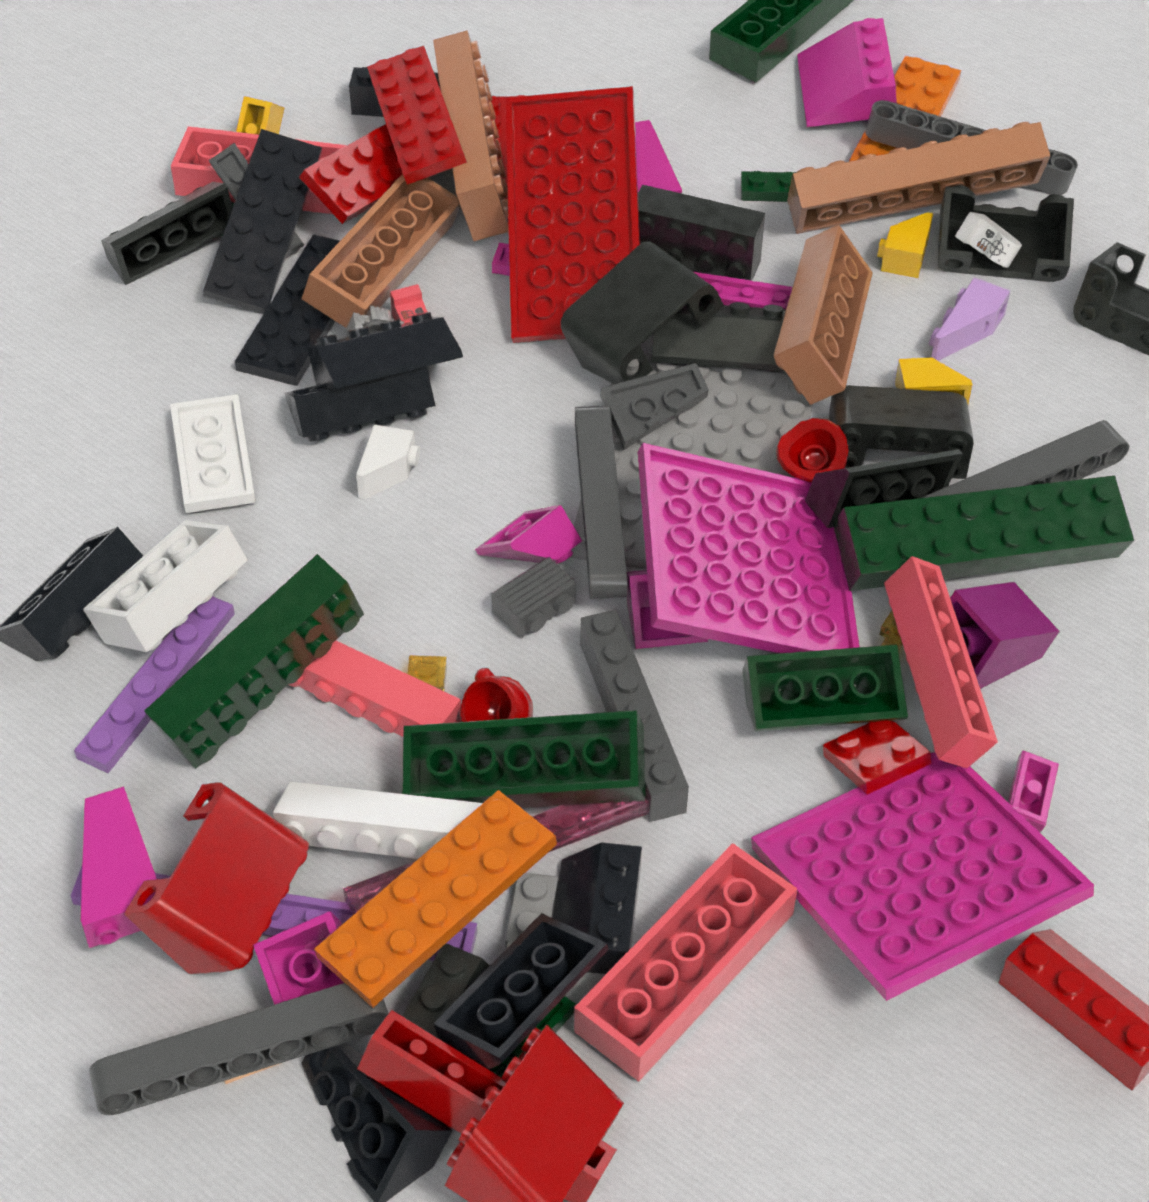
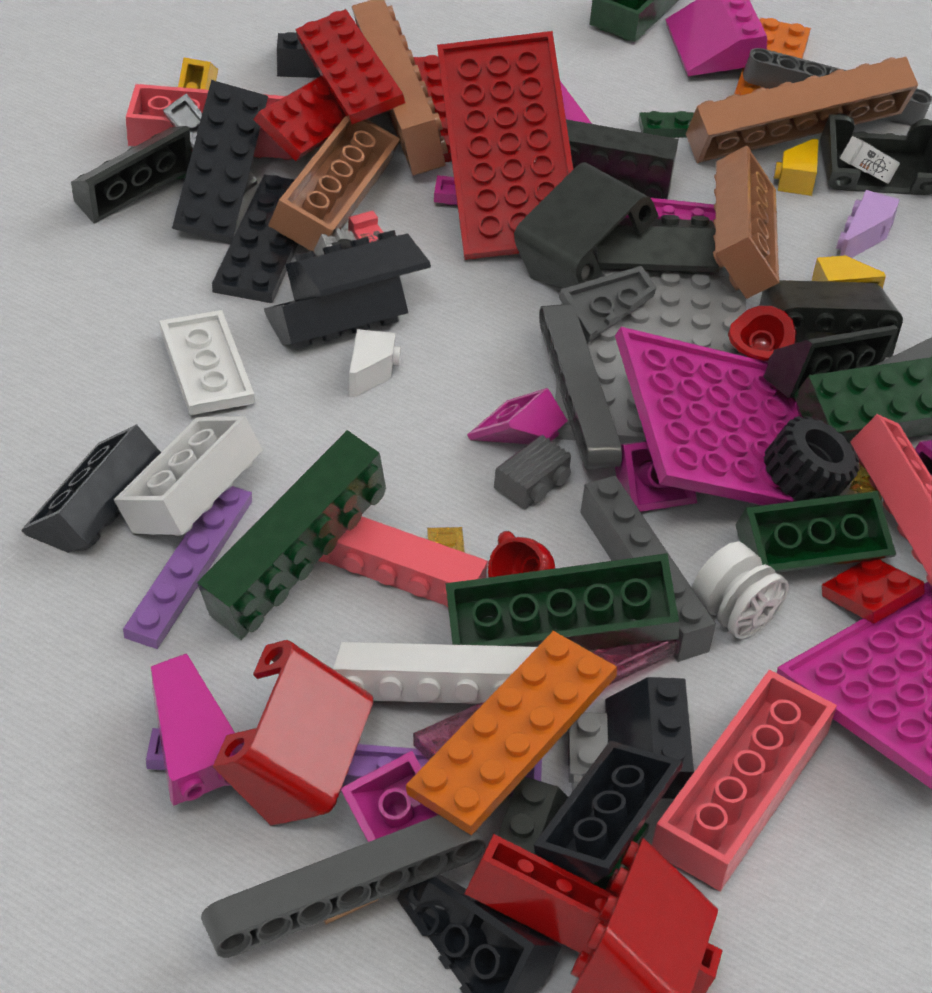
camera: 10 degrees left, 5 degrees down
(724, 748) = (740, 589): none -> white wheel
(831, 604) = (811, 460): none -> black tyre

